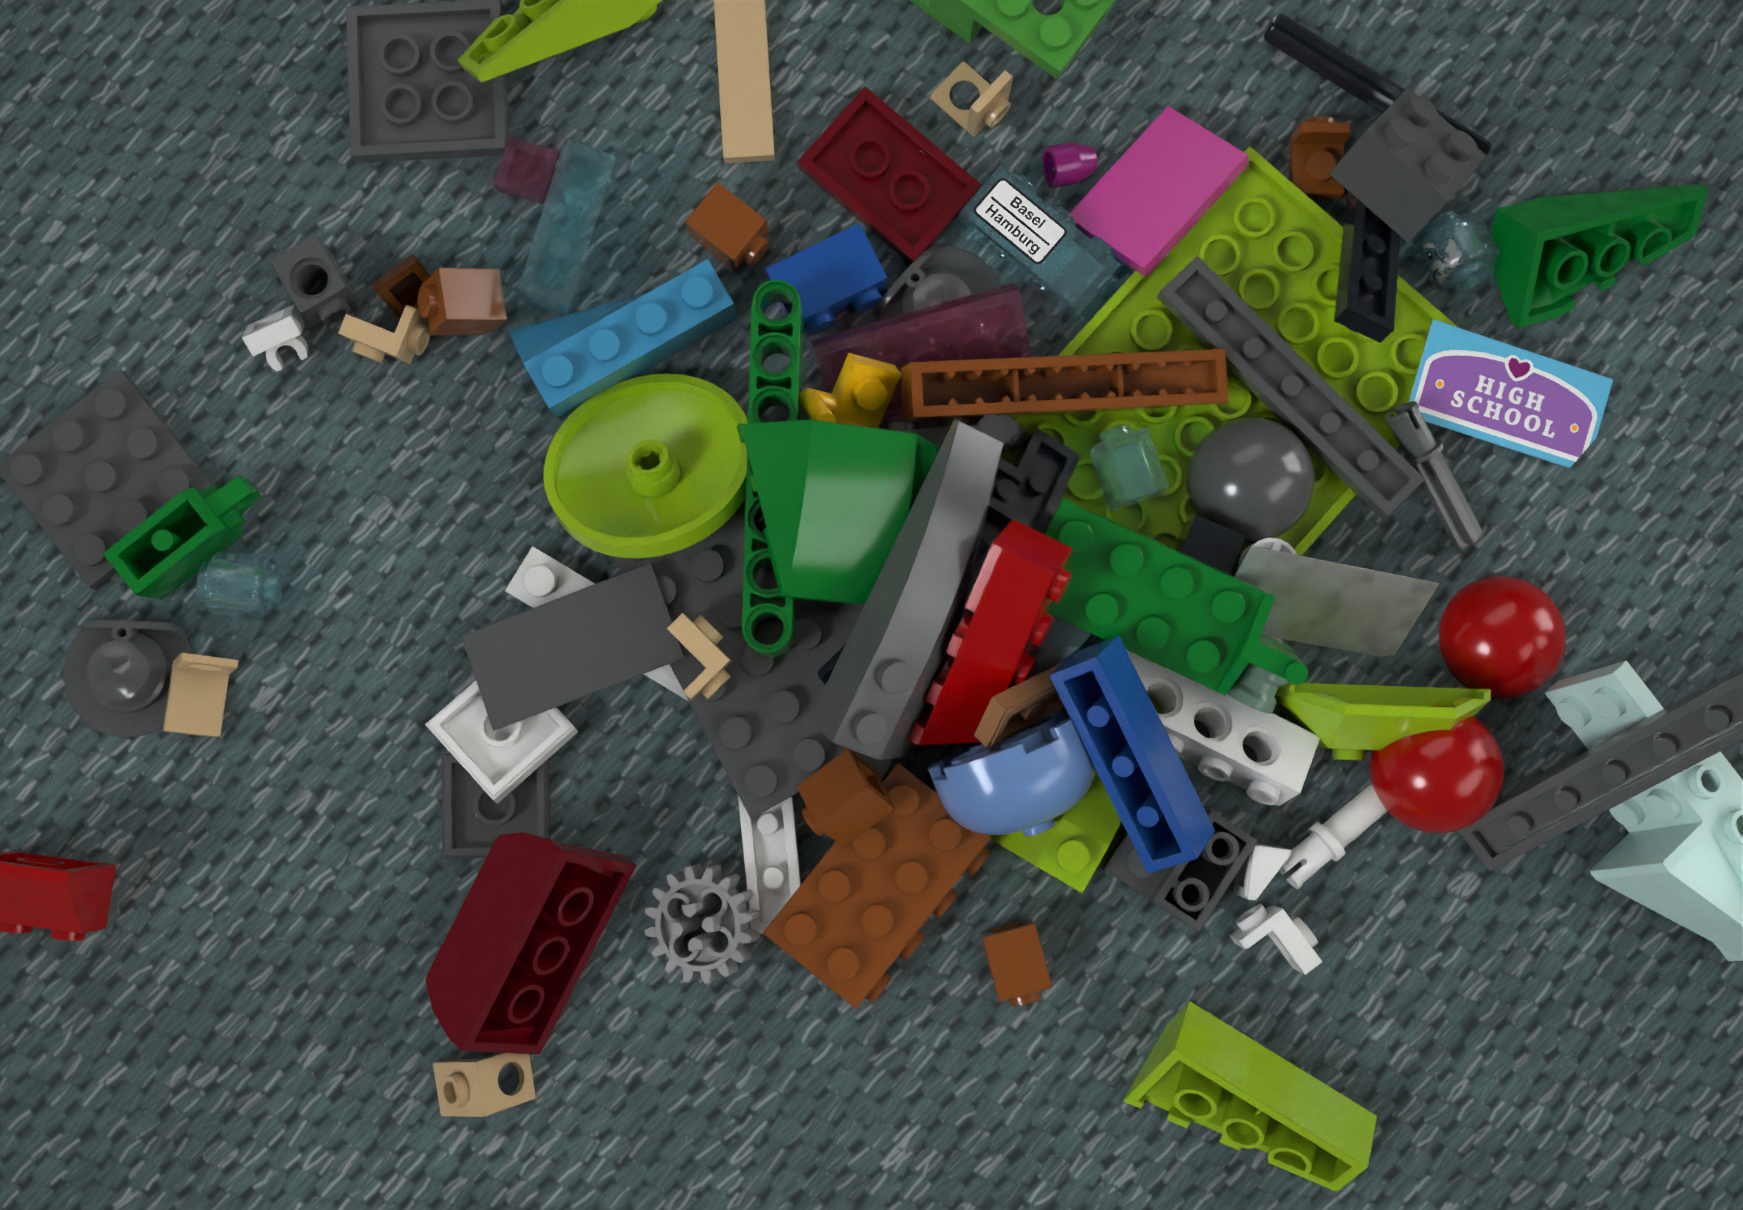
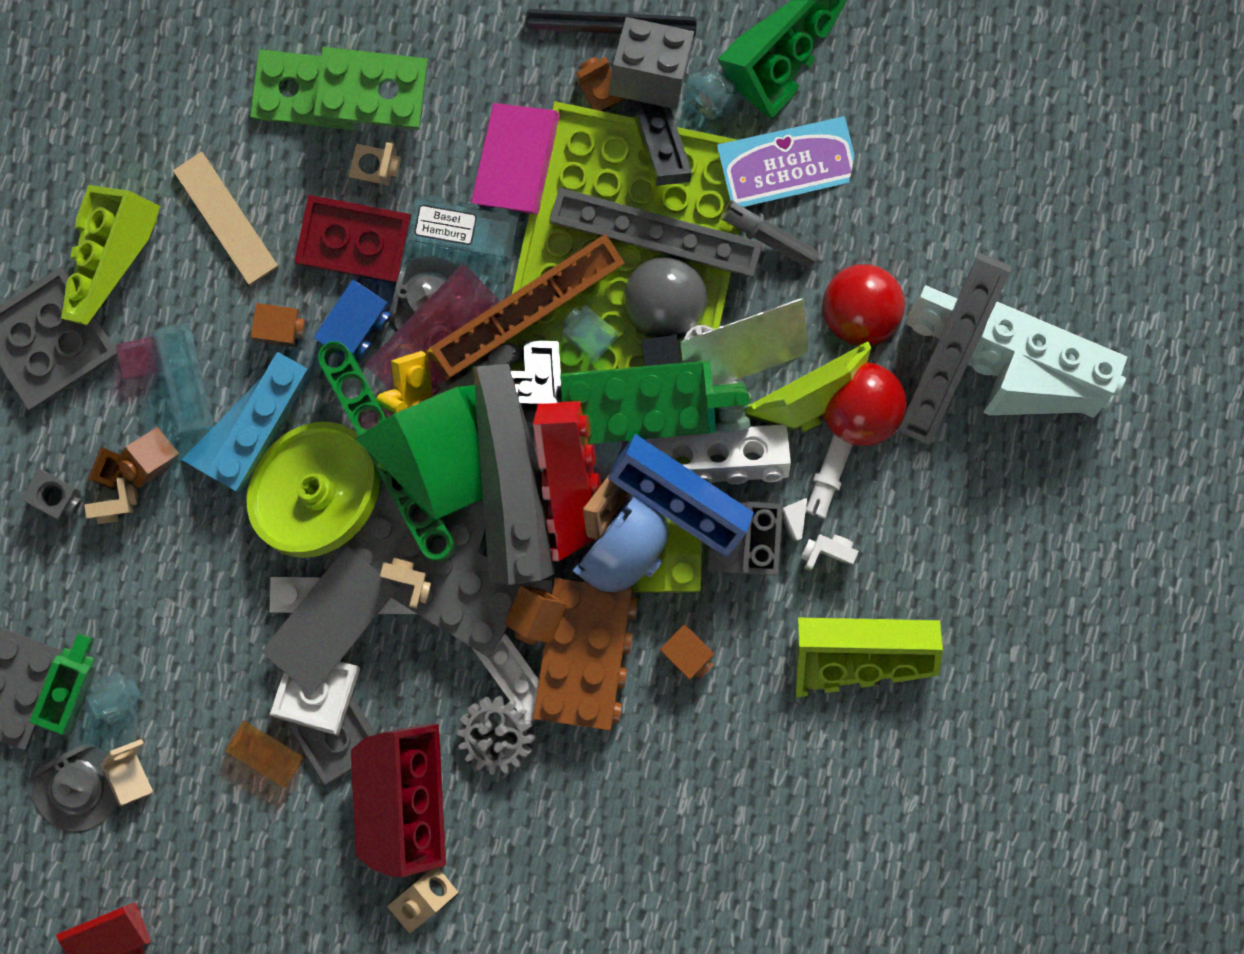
camera: 25 degrees left, 0 degrees up
(276, 331) = (44, 539): white tile -> none
(390, 771) = (264, 753): none -> clear orange plate
(1071, 161) = (455, 170): magenta hose -> none

